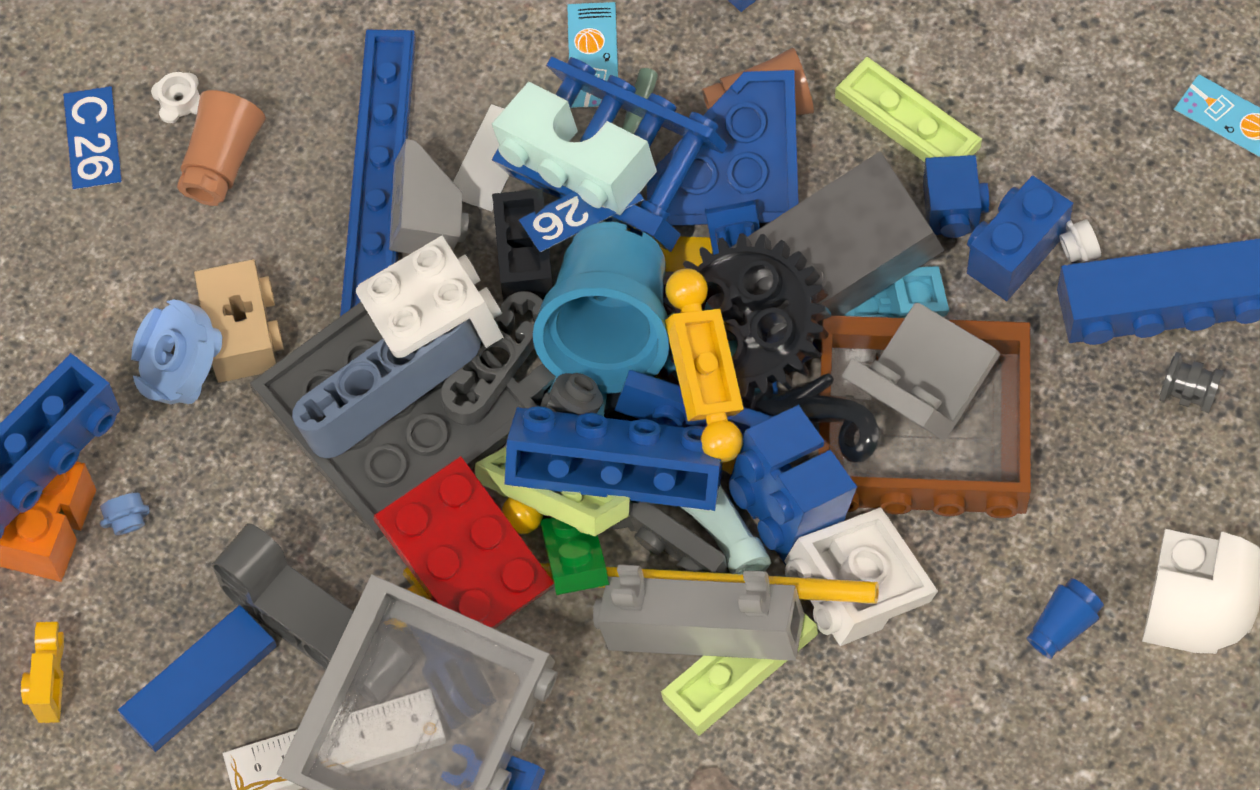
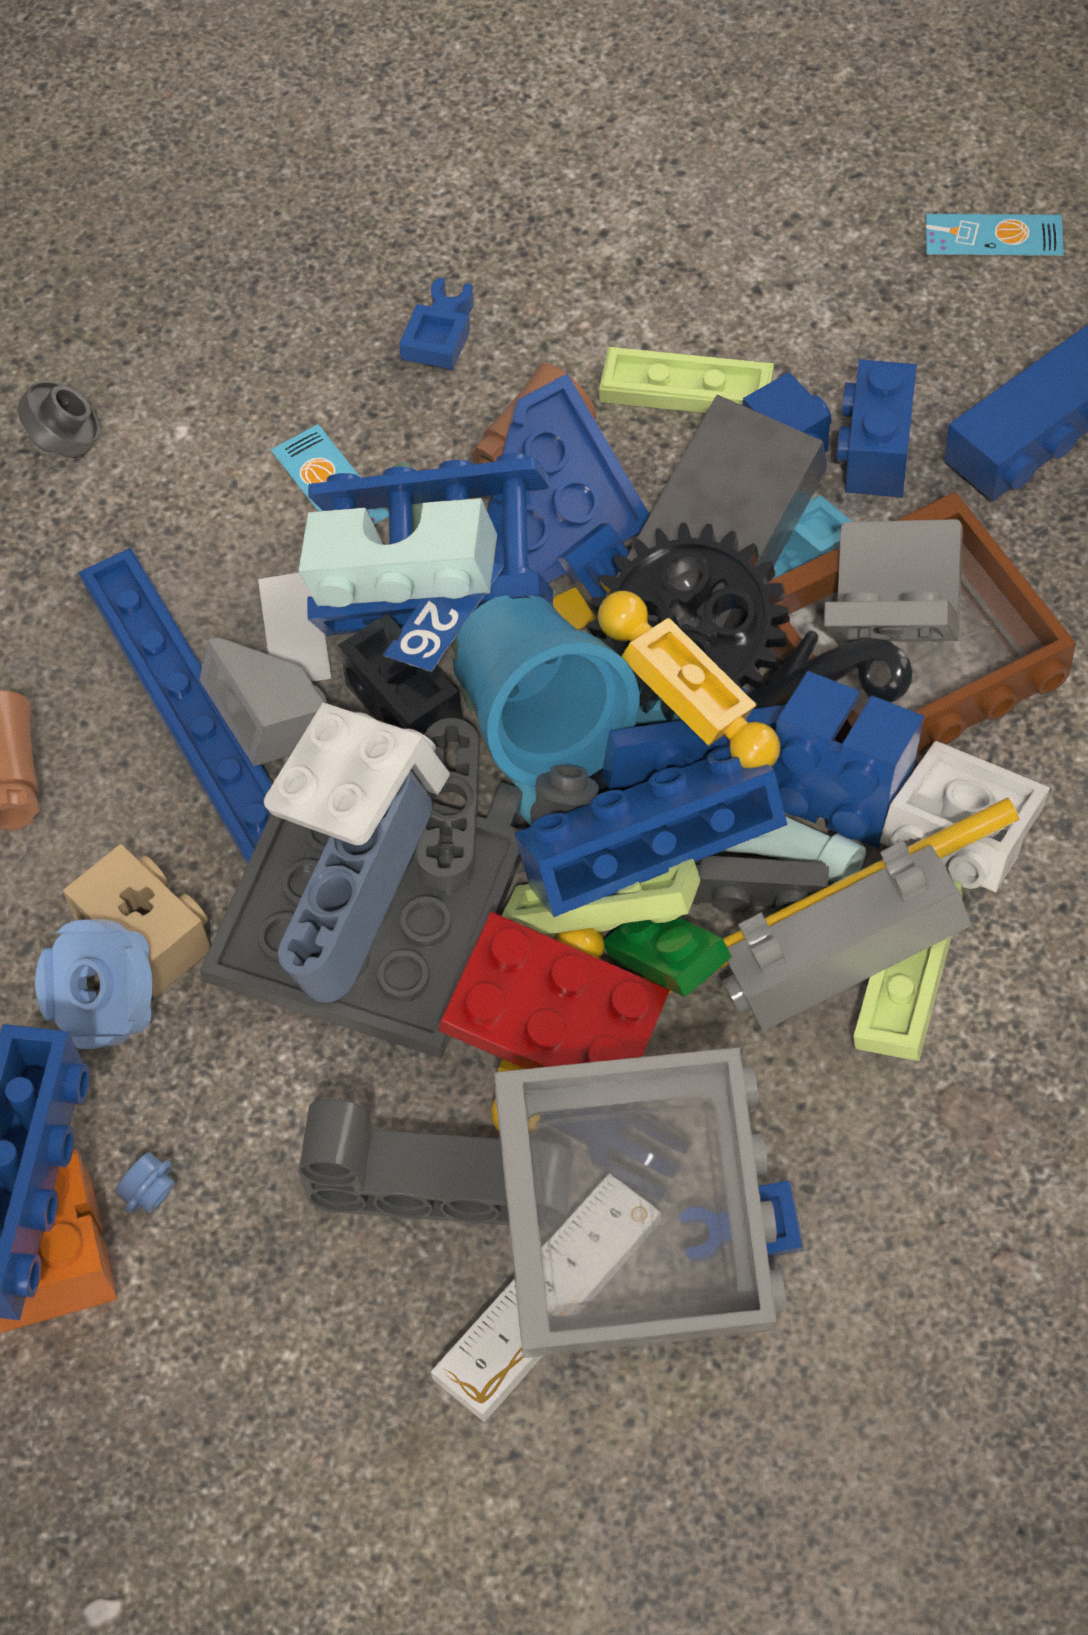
camera: 30 degrees left, 5 degrees down
(43, 684) = (177, 1418): yellow plate -> none
(197, 678) = (344, 1312): blue tile -> none
(1080, 242) = (937, 405): white plate -> none

